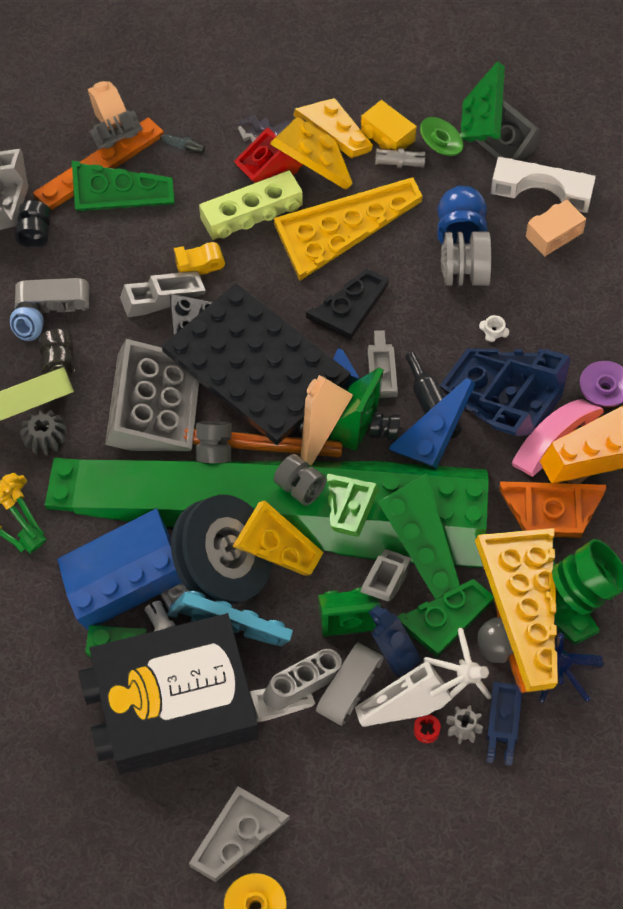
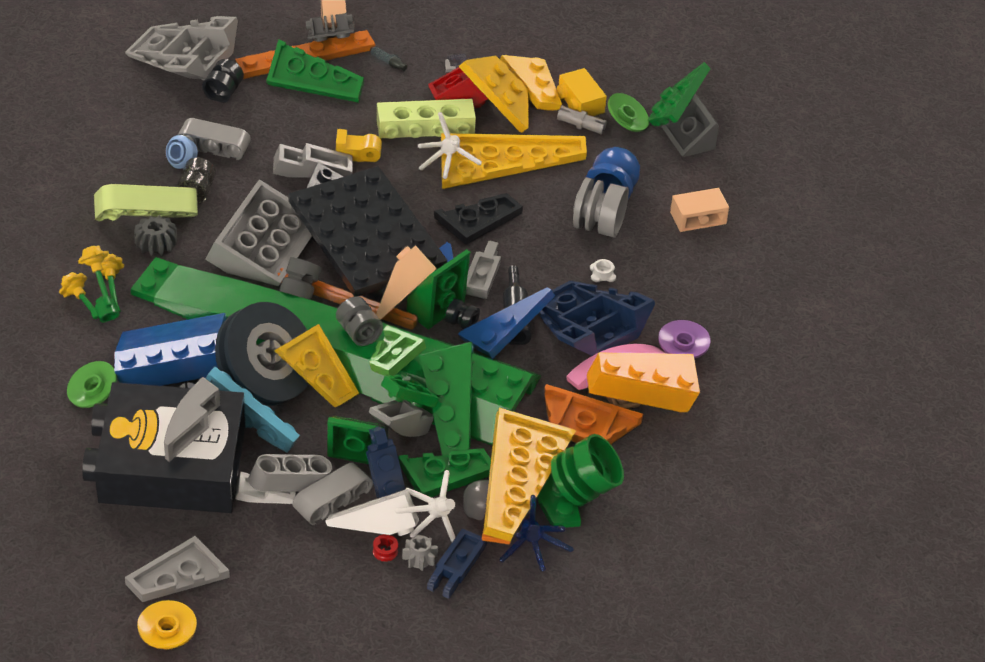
camera: 15 degrees right, 15 degrees down
(46, 633) = (91, 384): none -> bright green dish
(191, 666) = (191, 417): none -> light grey slope
(291, 234) = (448, 147): none -> white plant
(383, 546) = (409, 390): none -> green wing
(516, 176) = (681, 161): white arch -> none

